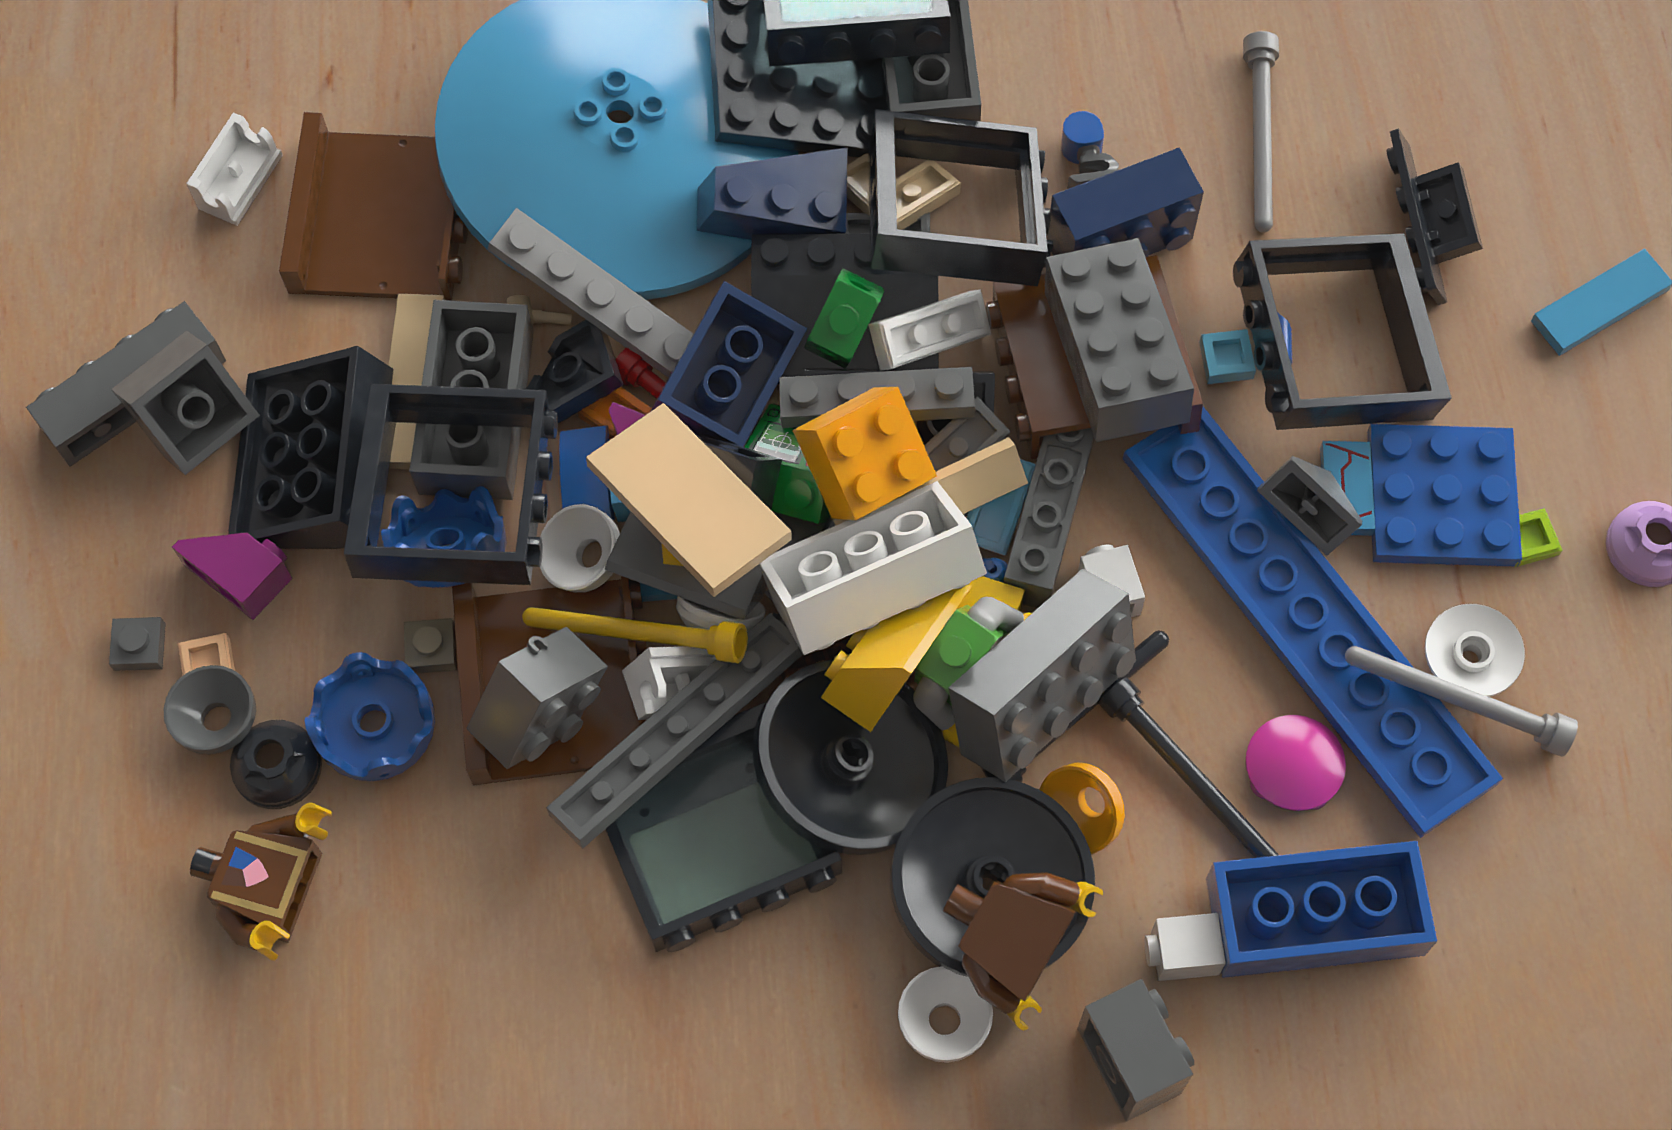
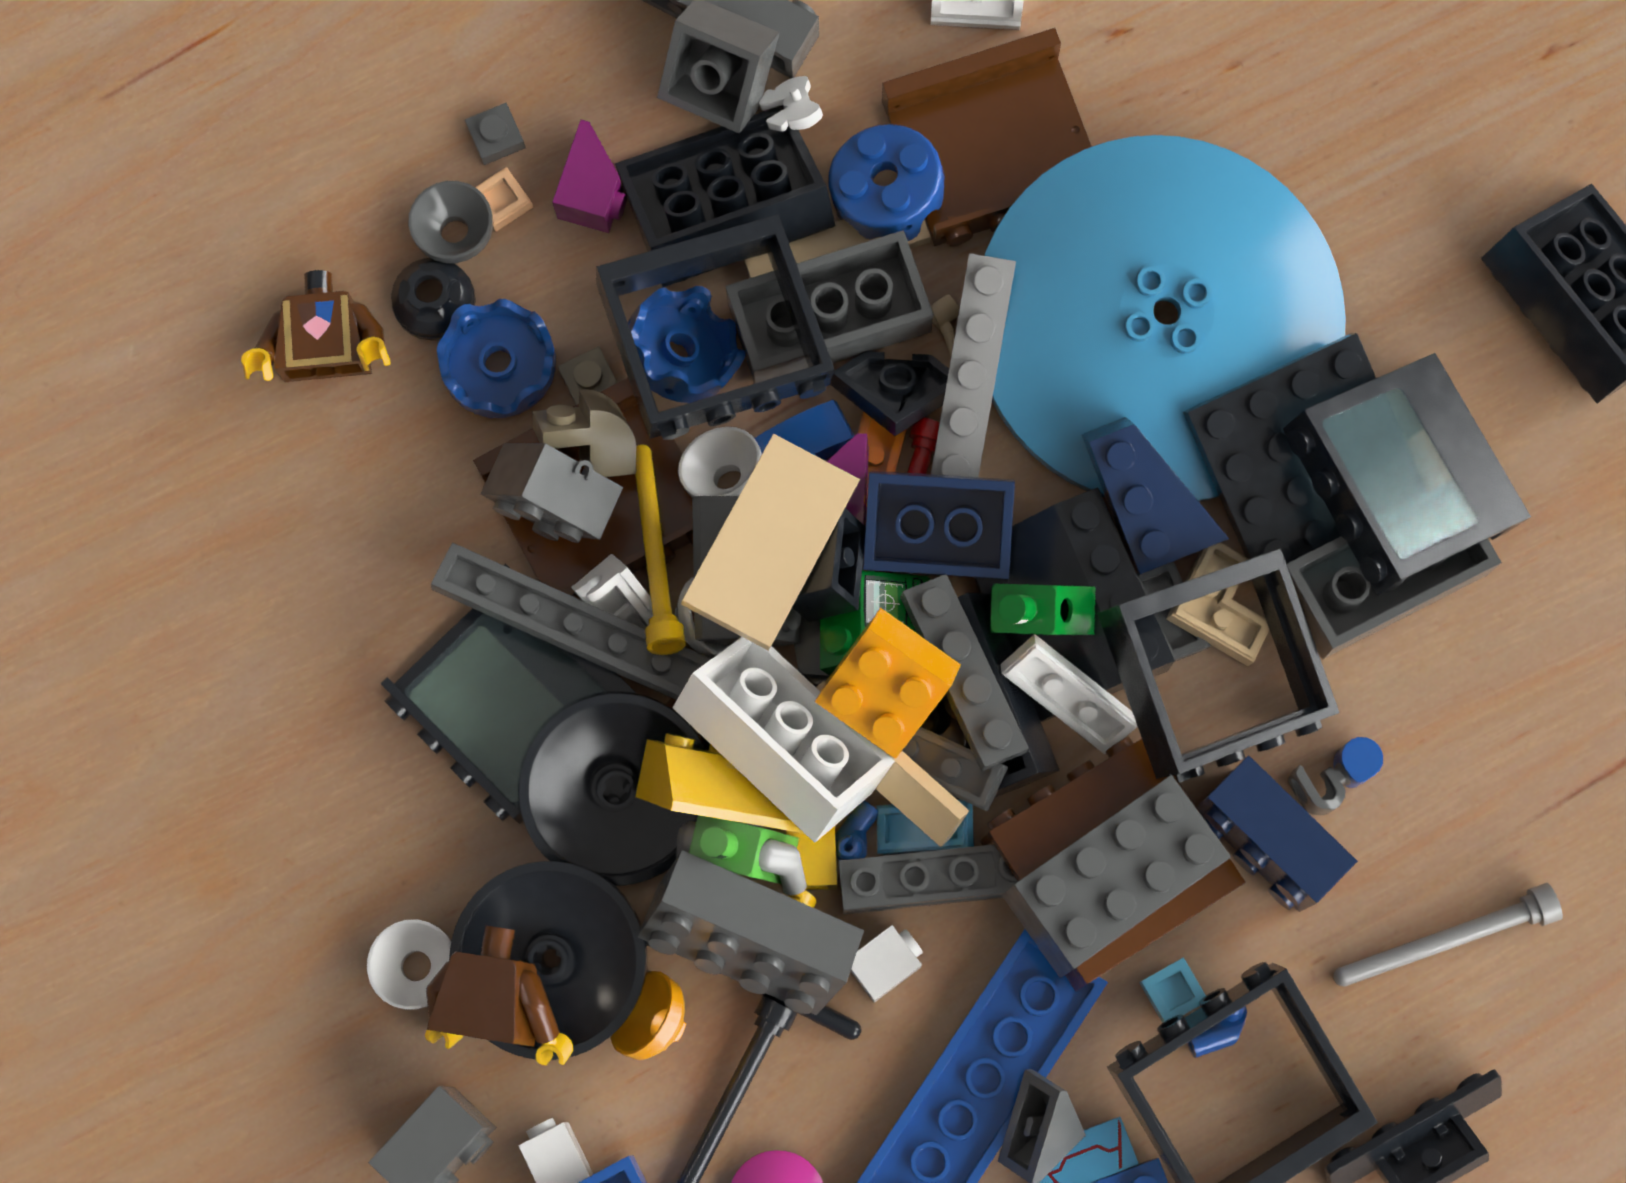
camera: 70 degrees right, 10 degrees up
(262, 358) = (799, 109): none -> white piece
(397, 322) = (889, 208): none -> blue plate
(487, 640) = (593, 426): none -> dark tan brick

